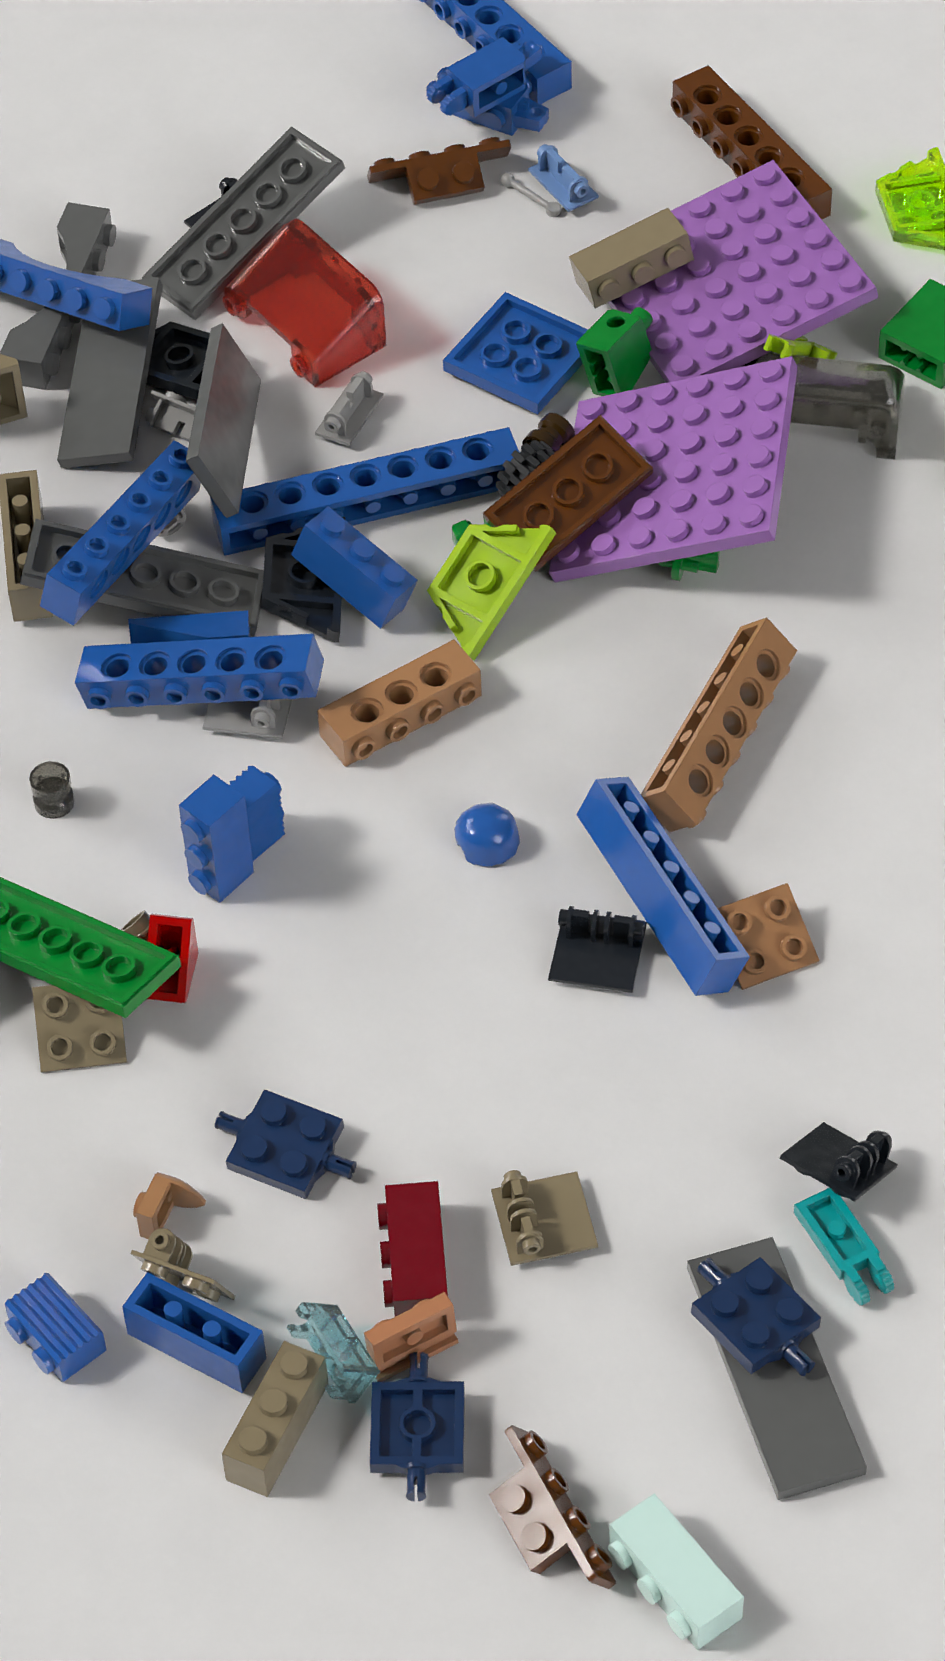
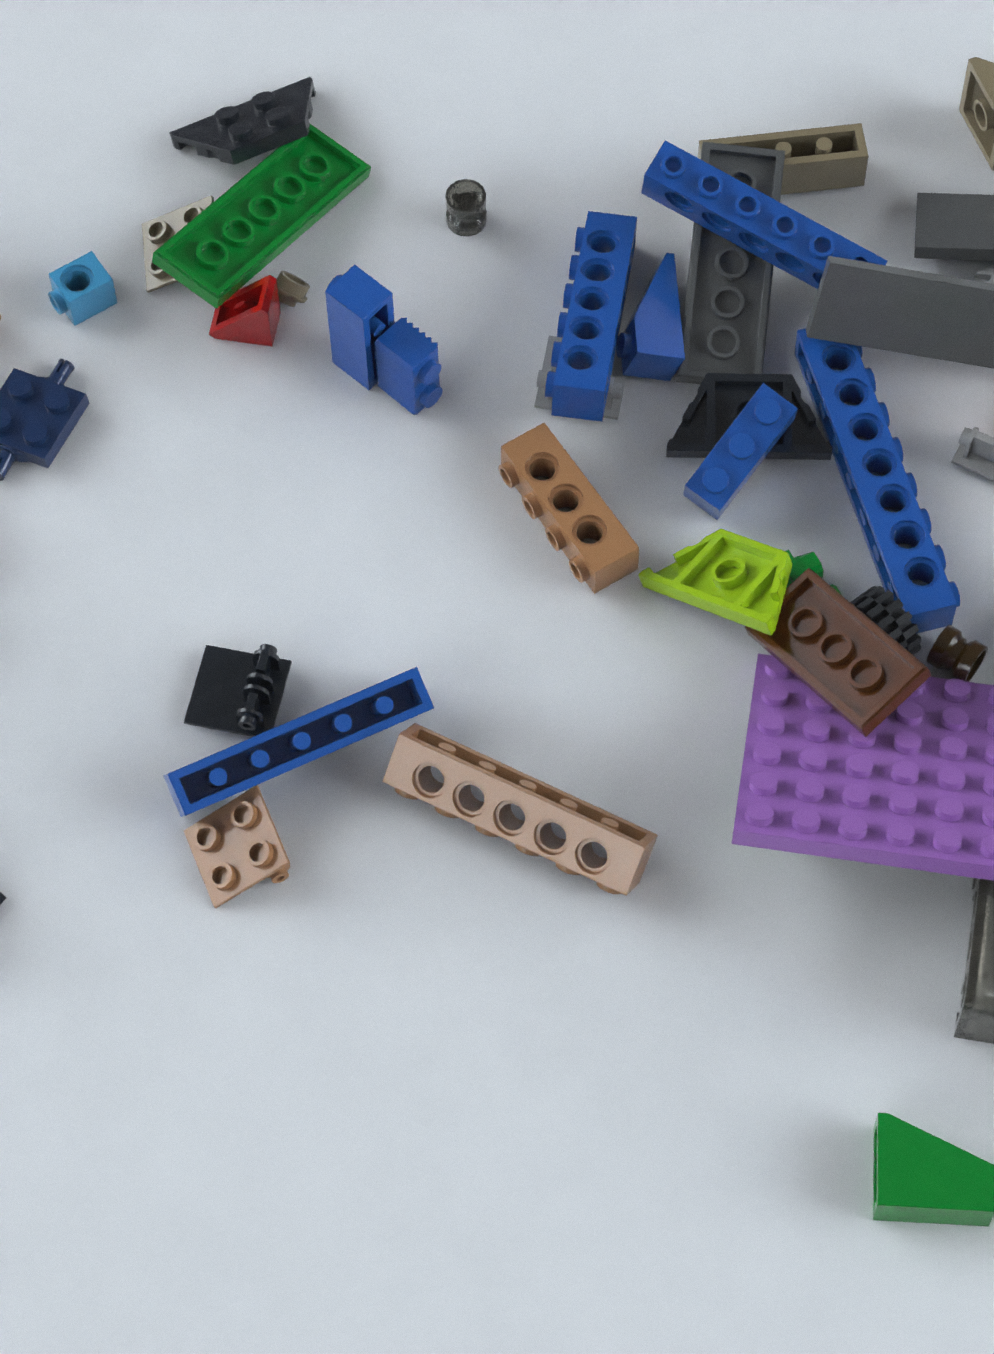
camera: 90 degrees right, 10 degrees up
(126, 1091) = (95, 285): none -> dark azure brick
(487, 834) = (395, 591): blue hair -> none

